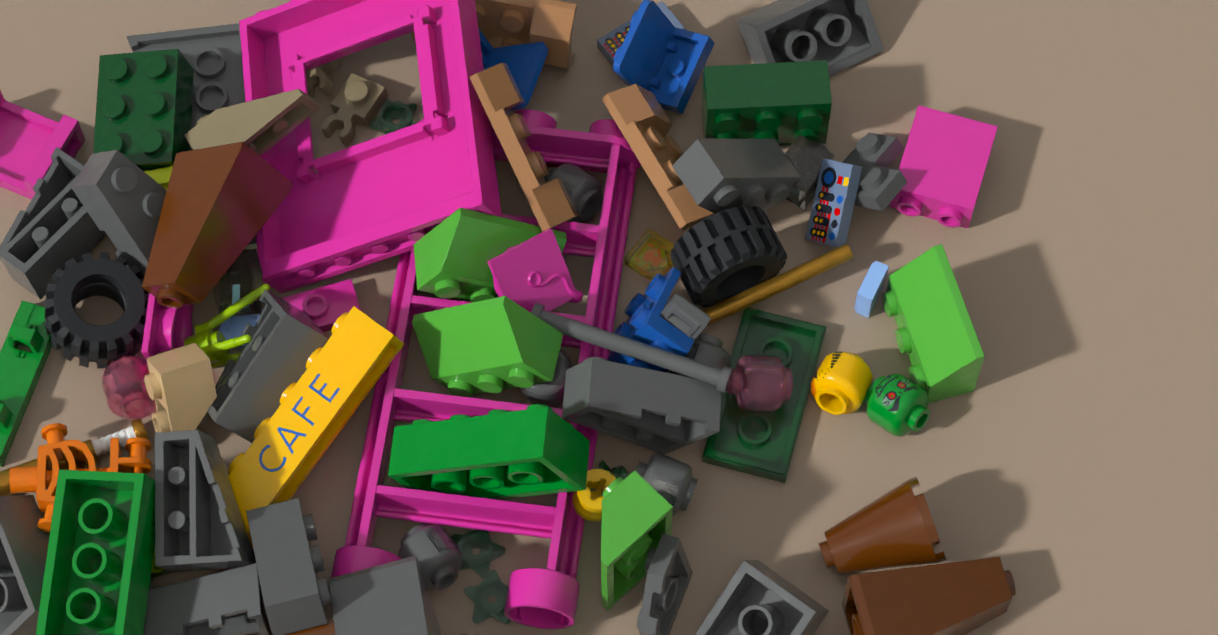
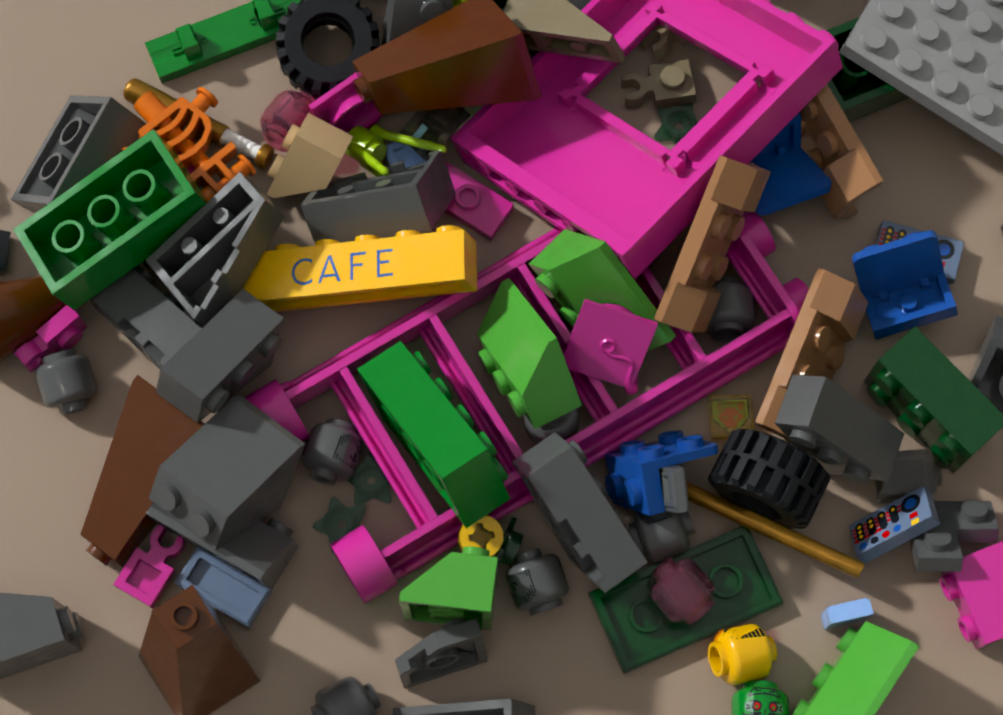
camera: 50 degrees right, 10 degrees up
(636, 349) = (614, 468): dark grey bar -> none

